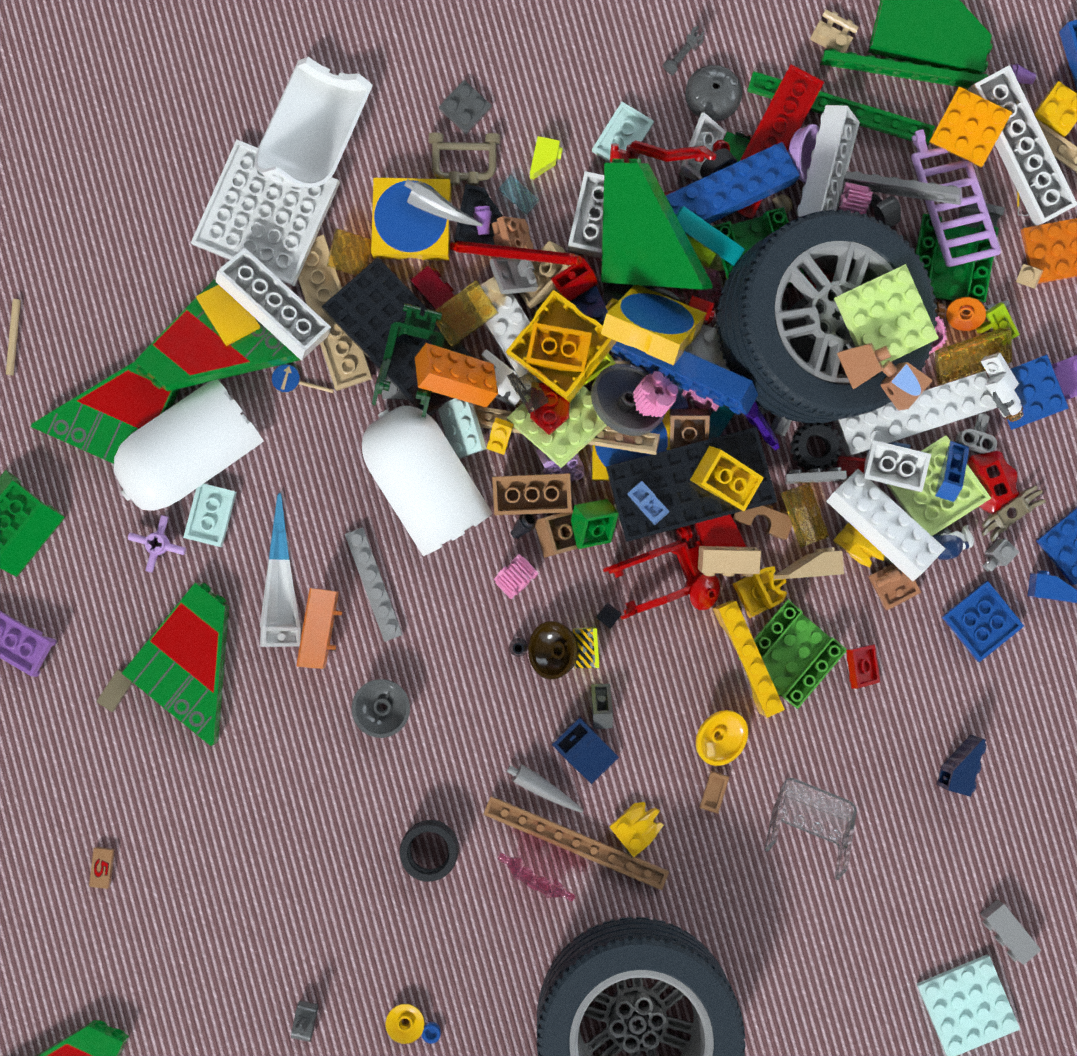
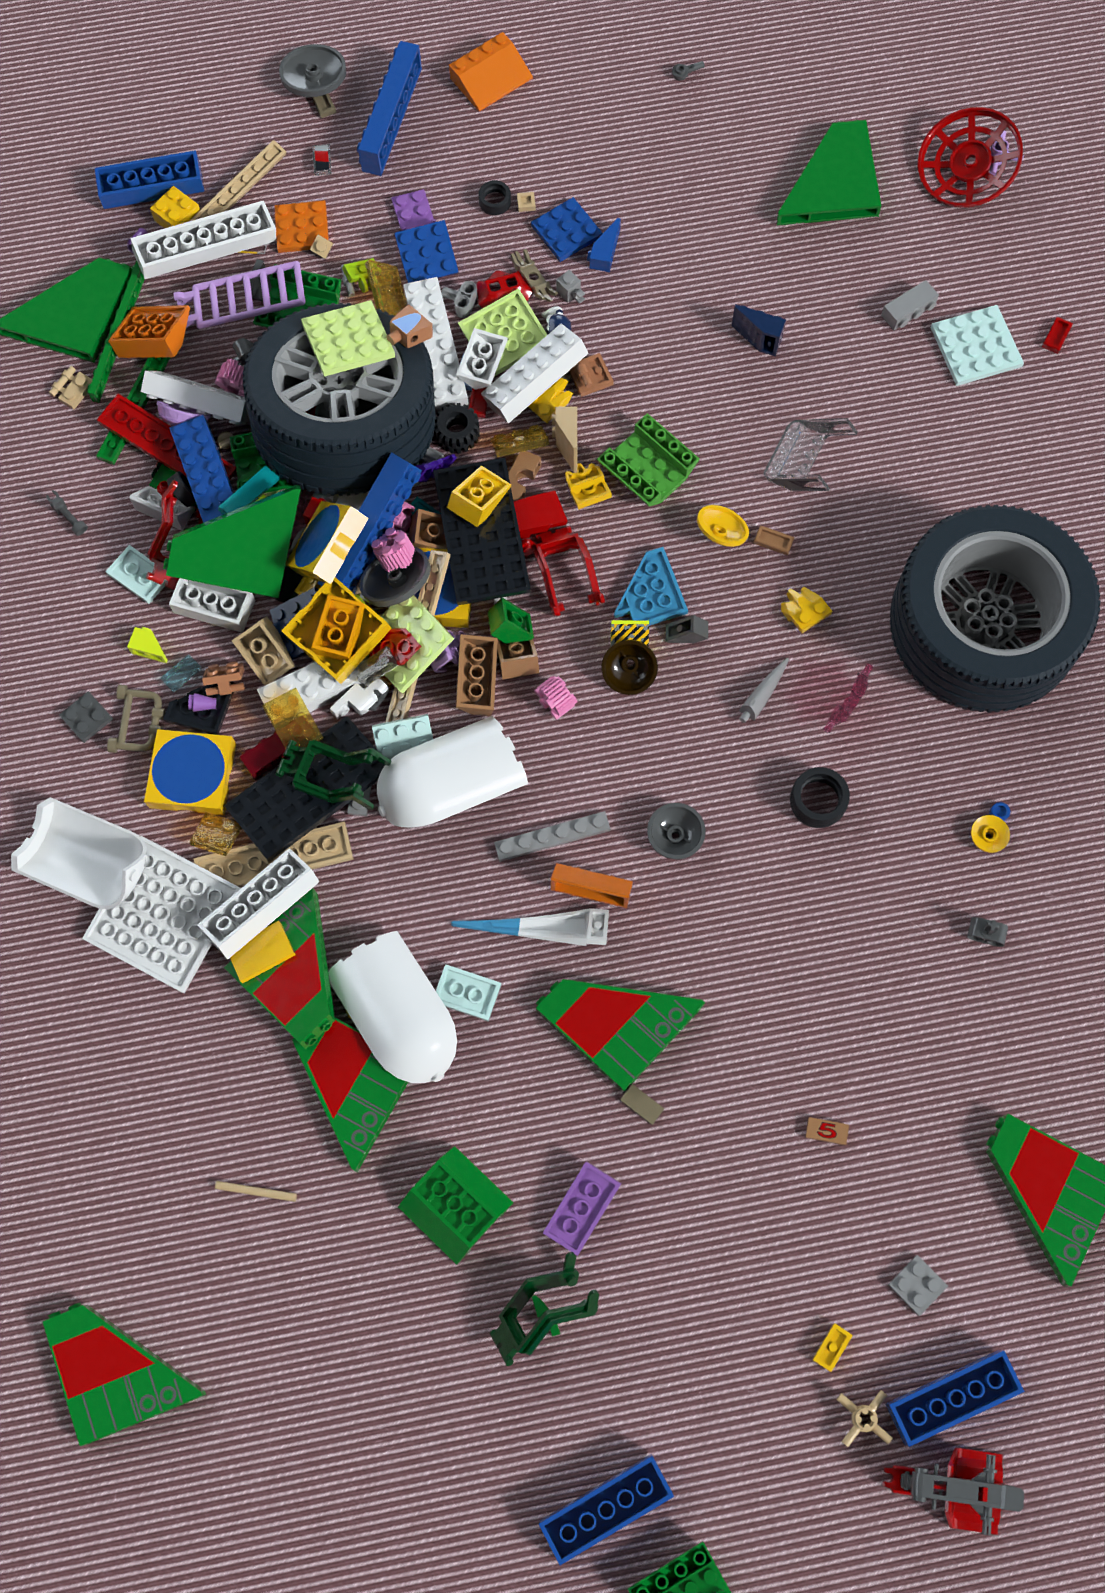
camera: 85 degrees left, 15 degrees down
(150, 540) = (494, 1054): lavender bar -> none
(287, 378) = (335, 907): blue piece -> none
(433, 203) = (179, 743): light grey piece -> none
(456, 375) = (353, 728): orange brick -> none
(500, 436) = (416, 701): yellow plate -> none
(514, 275) = (259, 672): light grey plate -> none
(516, 253) = (240, 665): red piece -> none
(518, 641) = (625, 702): black cone -> none
(524, 524) = (506, 687): black cone -> none
(574, 280) = (272, 616): red brick -> none
(576, 842) = (816, 665): medium nougat plate -> none
(584, 750) = (726, 649): dark blue slope -> none
(608, 615) = (599, 621): black slope -> none
(643, 668) = (652, 591): none -> dark azure wing
(648, 503) = (496, 566): medium blue slope -> none
(704, 592) = (584, 531): red dish -> none
(714, 102) = (109, 501): dark grey hat -> none
(729, 560) = (556, 505): tan brick -> none
(762, 687) = (612, 504): yellow arch -> none
(815, 475) = (484, 420): light grey plate -> none
(862, 362) = (386, 354): nougat torso -> none
(863, 666) = (663, 403): red plate -> none
(902, 106) = (151, 332): none -> orange slope
(906, 188) = (228, 331): light grey plate -> none
(952, 472) = (493, 315): blue slope -> none
(966, 320) = (349, 289): orange dish -> none
(970, 127) = (180, 275): light orange plate -> none
(982, 621) = (629, 307): blue plate -> none
(1002, 387) = (419, 269): white plate -> none

